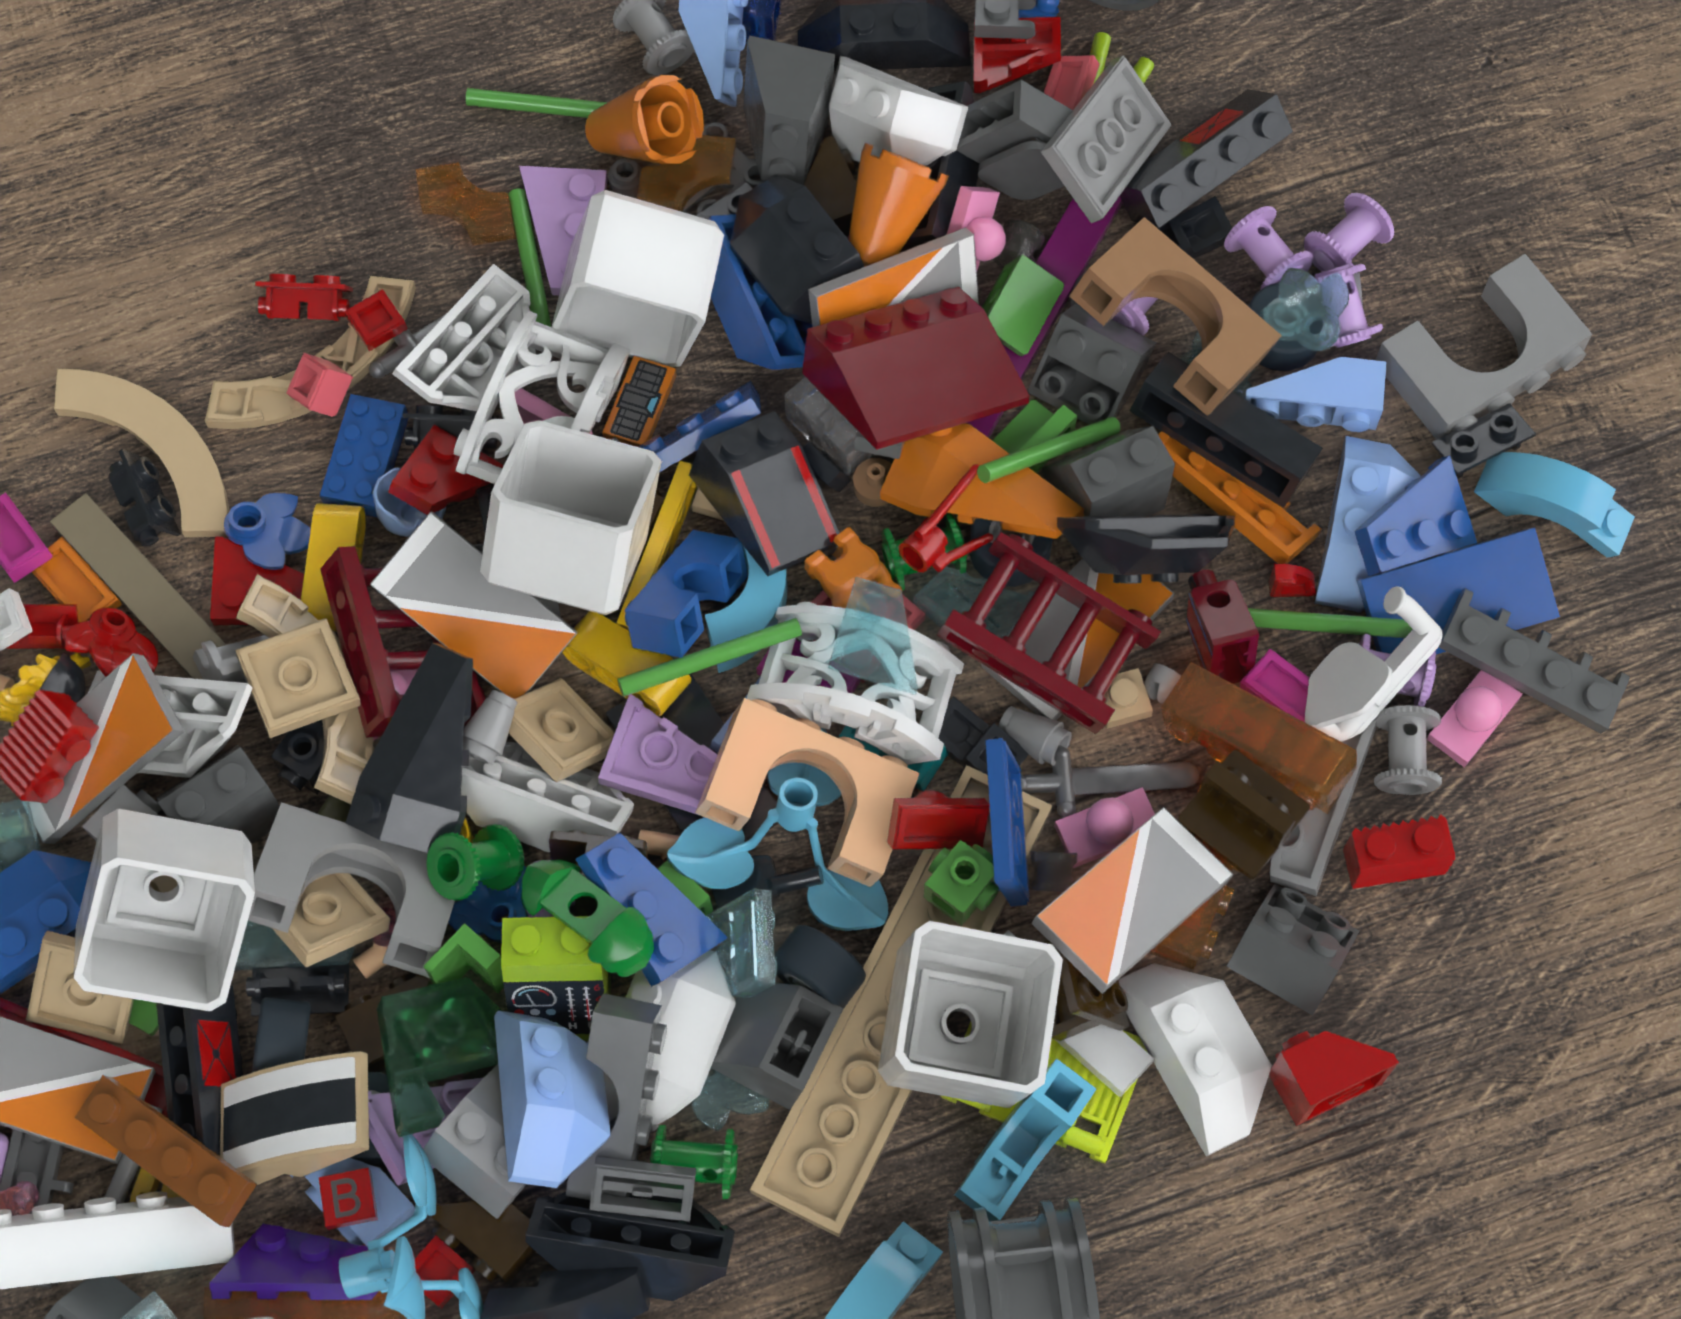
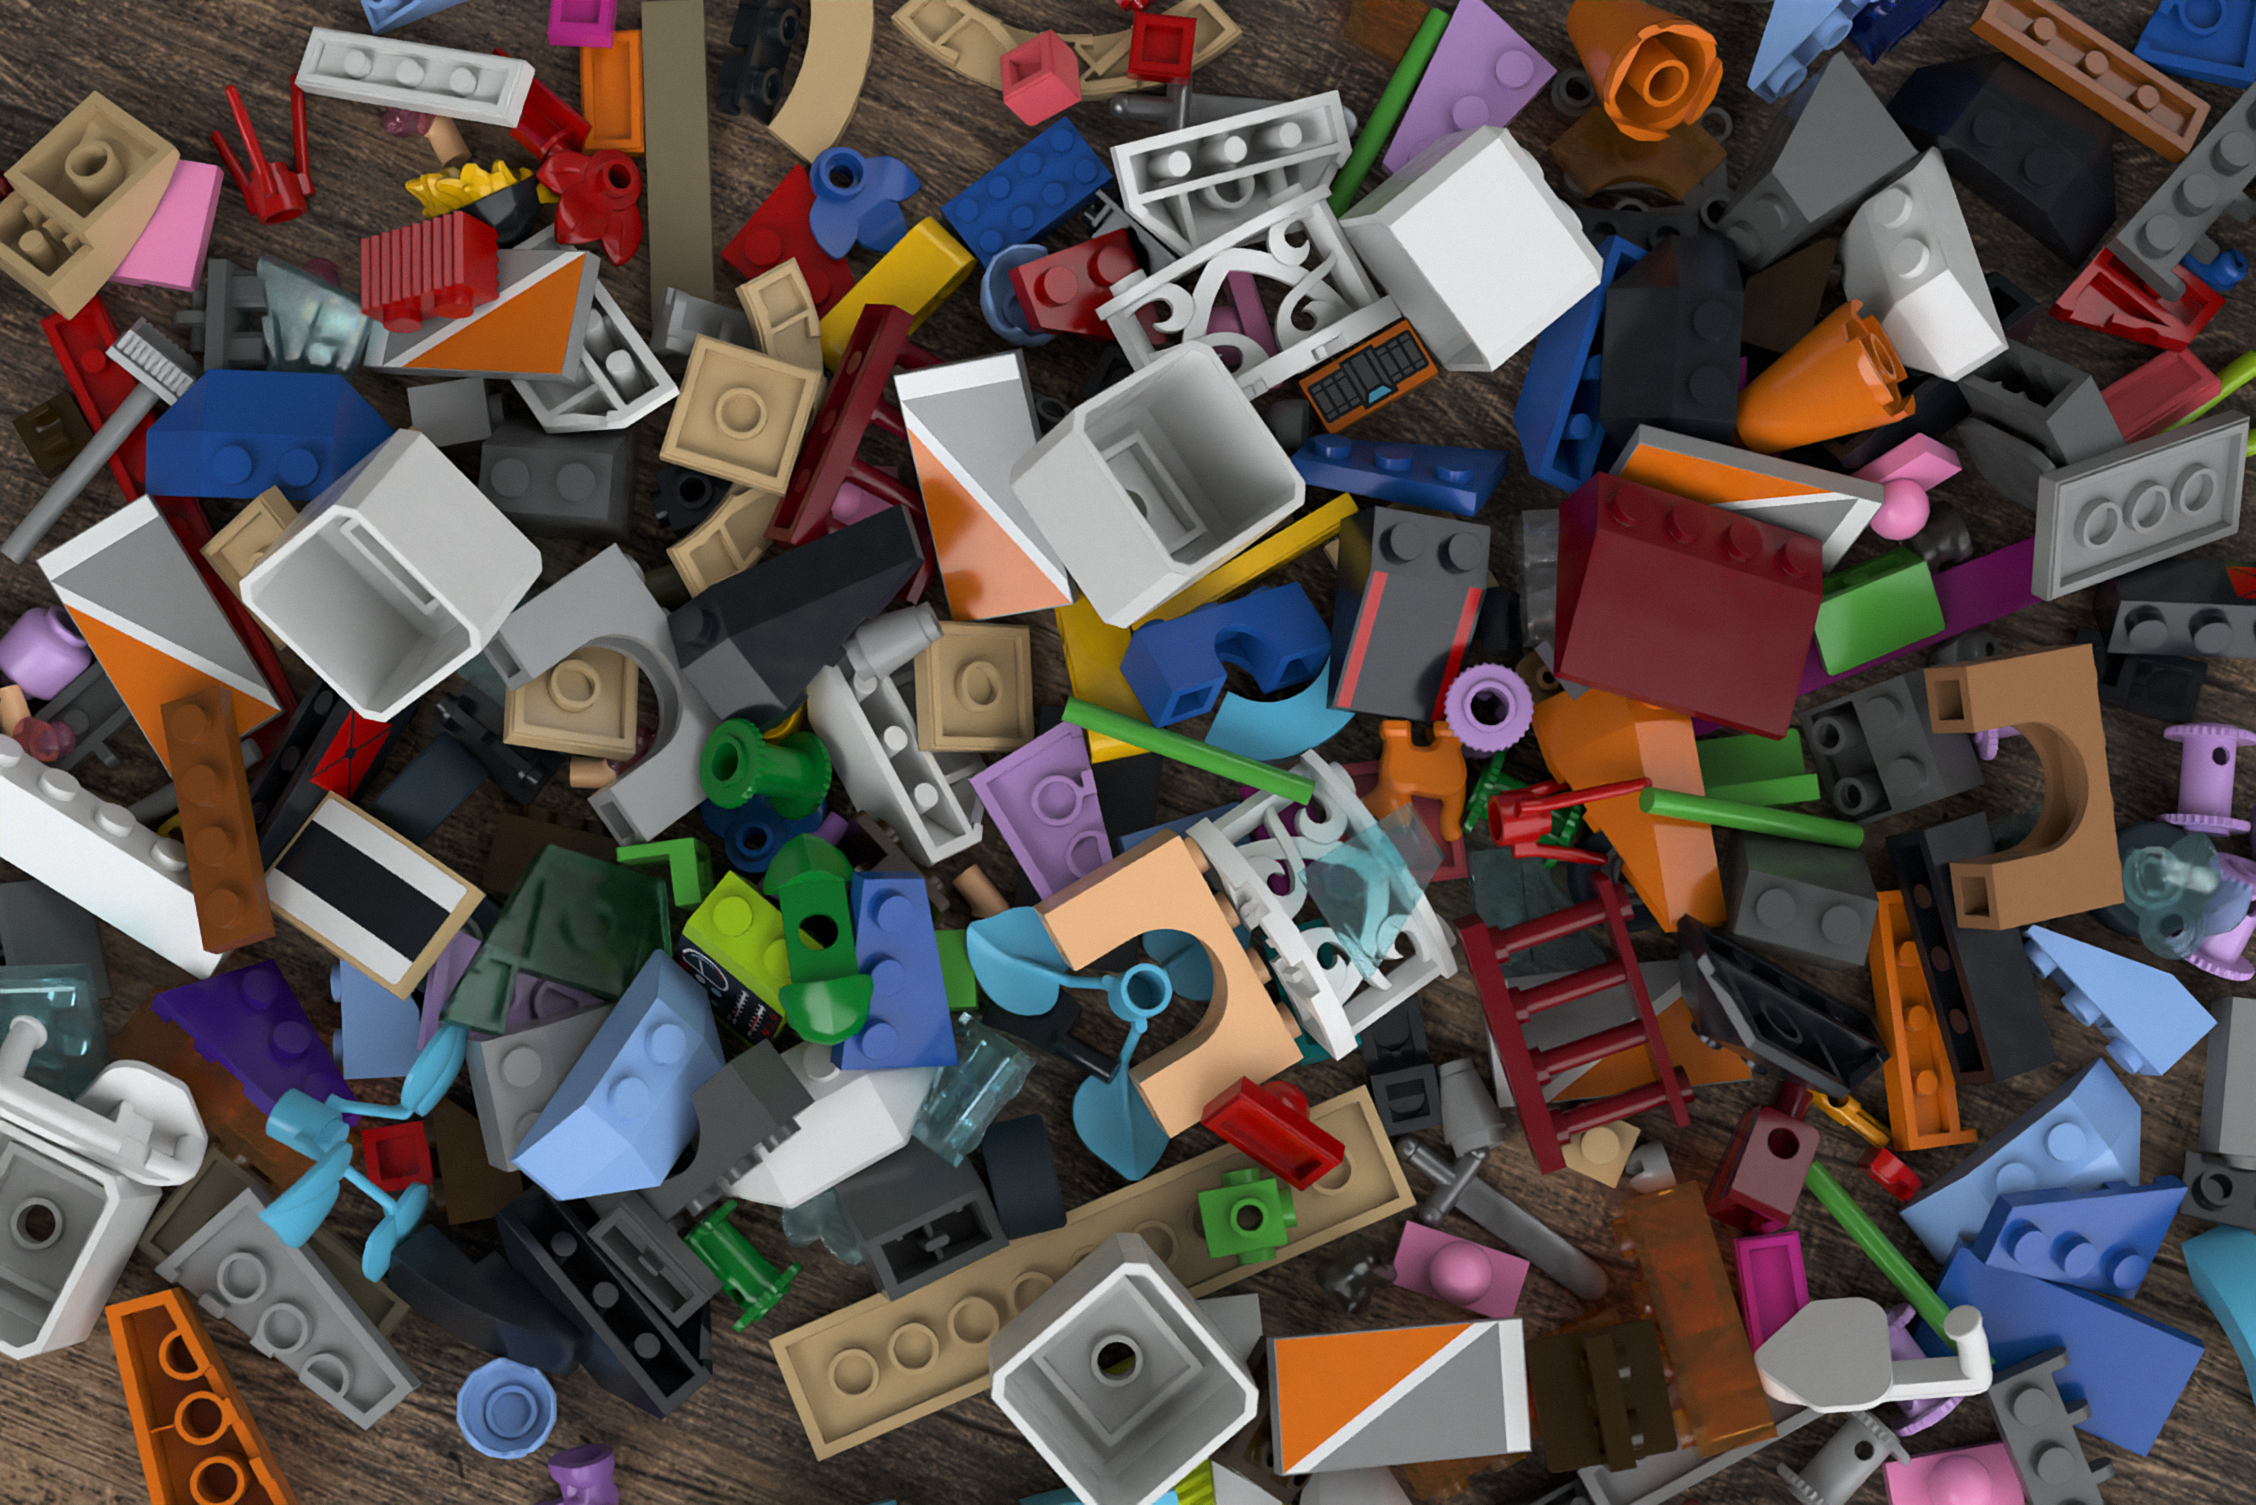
camera: 40 degrees right, 15 degrees up
(348, 1198) = (360, 1018): red tile -> none
(858, 514) = (1505, 693): none -> lavender hose
(1007, 822) = (1341, 1198): blue tile -> none
(1240, 570) = (1851, 1114): none -> light orange pin

